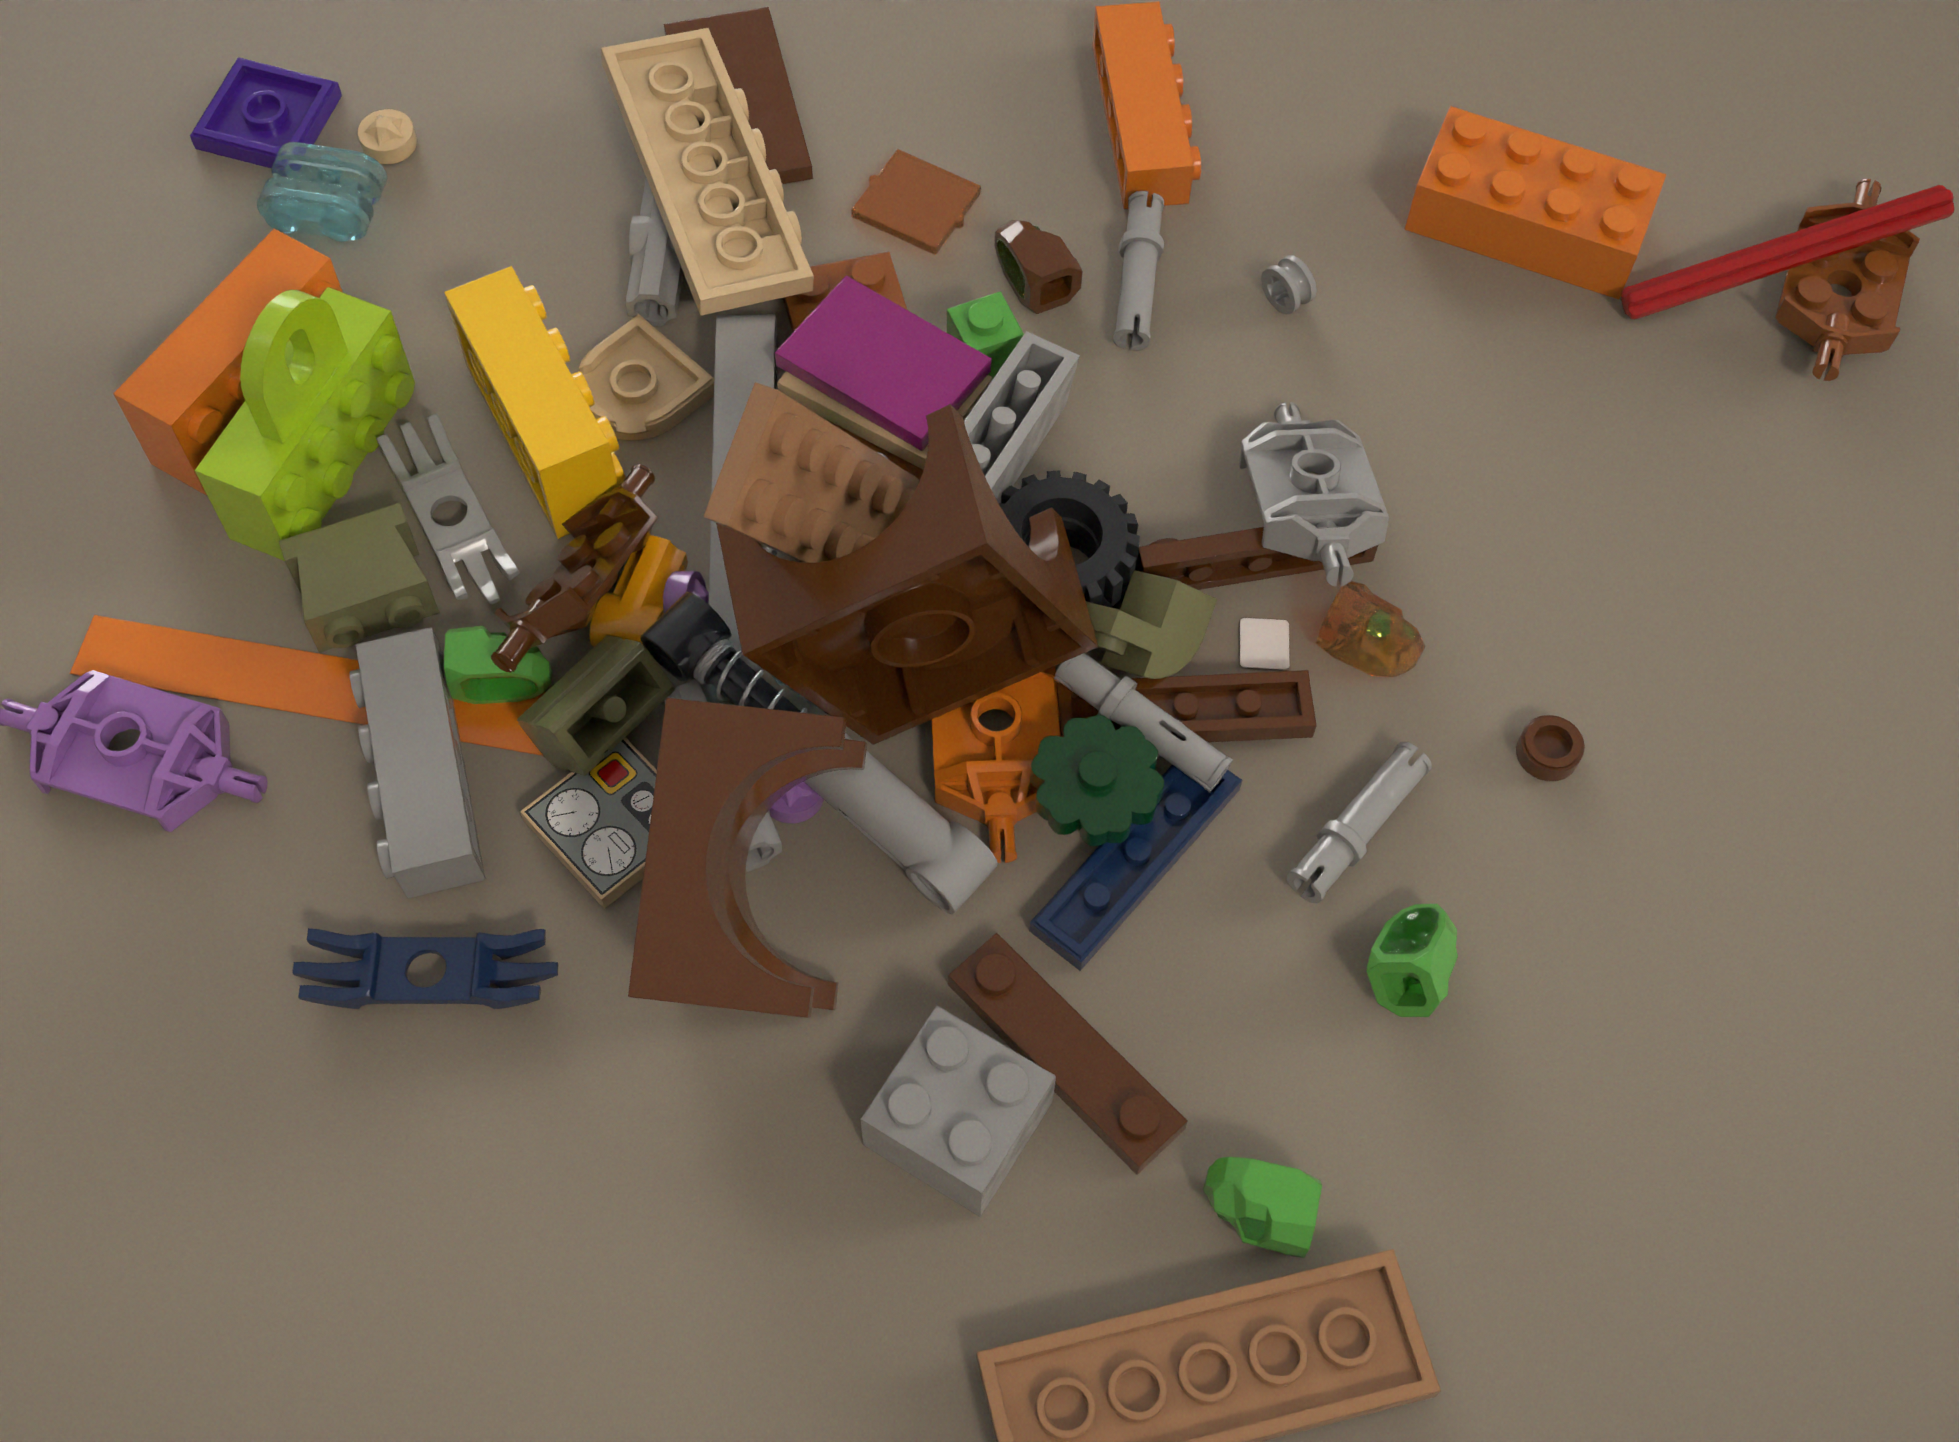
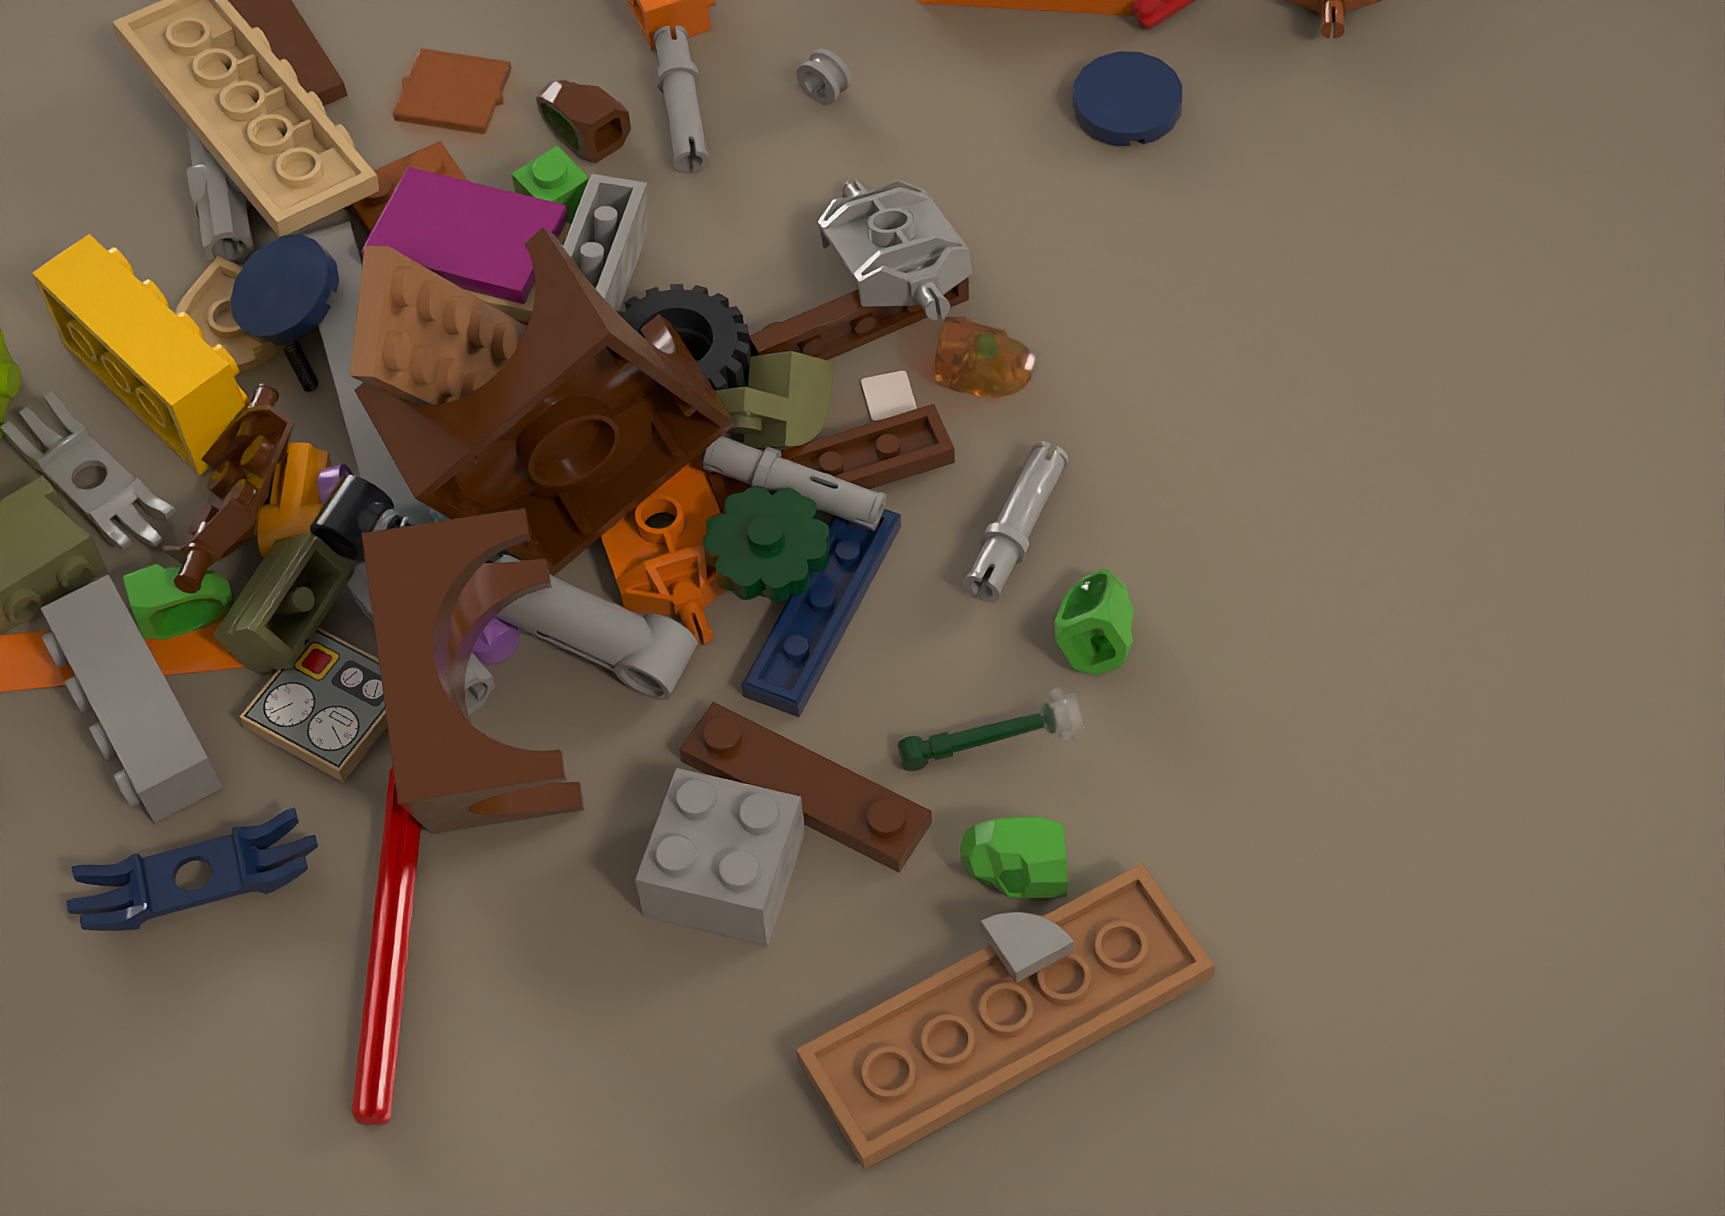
camera: 10 degrees left, 5 degrees down
(582, 1145) = (386, 964): none -> red axle
(683, 456) = (295, 357): none -> black leg
(690, 371) = (284, 289): none -> dark blue tile
(1247, 1307) = (1025, 942): none -> light grey tile
(1348, 1052) = (1058, 715): none -> dark green piece
(1550, 748) = (1171, 415): reddish brown tile -> none
(1592, 388) = (1127, 98): none -> dark blue tile

